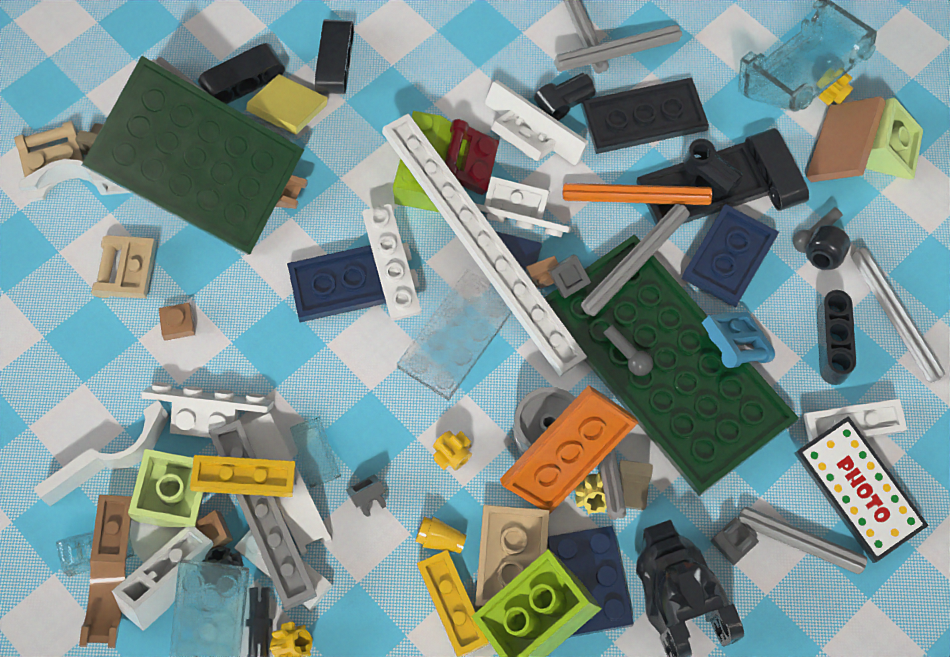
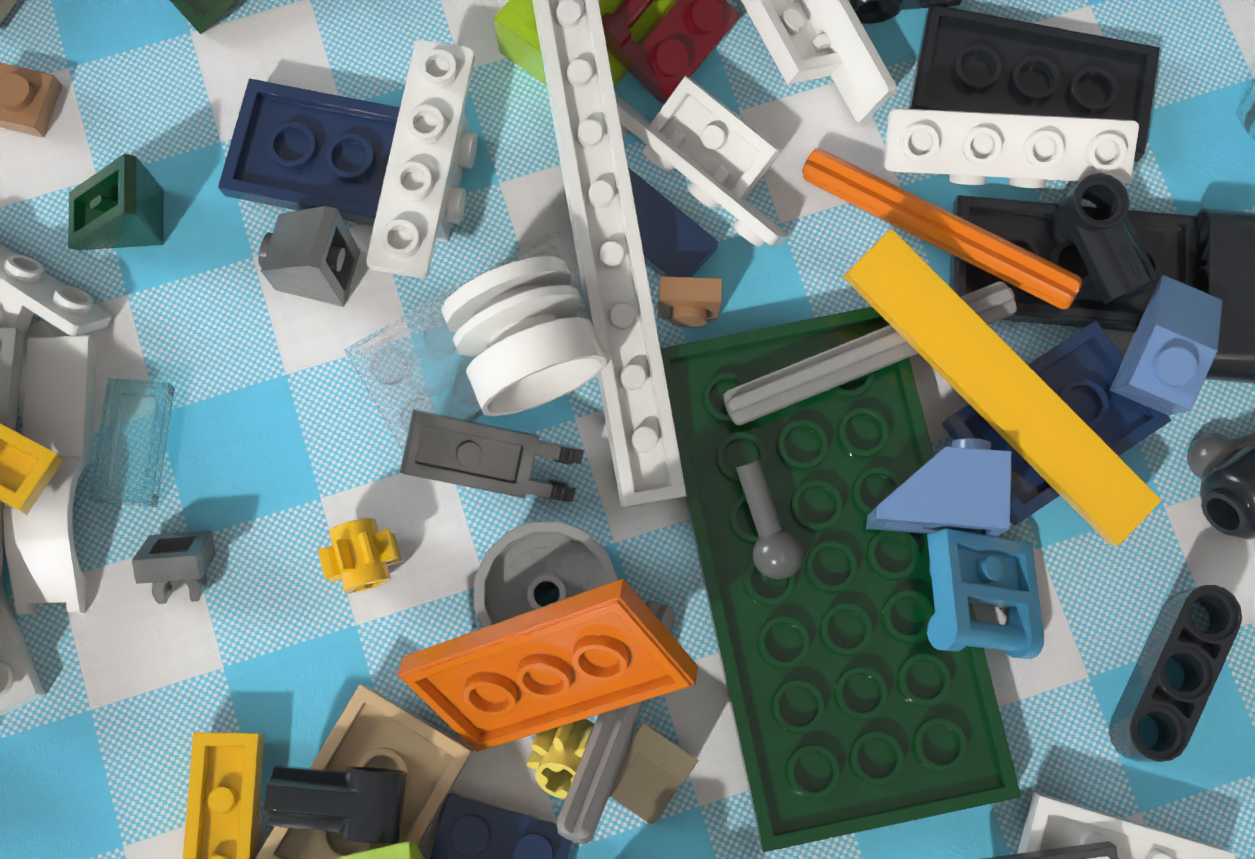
camera: 25 degrees right, 10 degrees up
(251, 350) = (117, 208): none -> dark green slope
(358, 328) = (310, 255): none -> dark grey slope
(439, 536) = (261, 700): yellow cone -> none
(482, 315) = (523, 335): none -> white wheel
(486, 380) = (483, 456): none -> hinge
(512, 552) = (357, 803): none -> black piece
(569, 276) = (727, 330): dark grey plate -> none
(649, 145) = (1008, 146): none -> white bracket
(700, 247) = (1002, 388): none -> yellow tile
(704, 297) = (955, 490): none -> medium blue slope
(763, 201) = (1171, 348): none -> medium blue slope

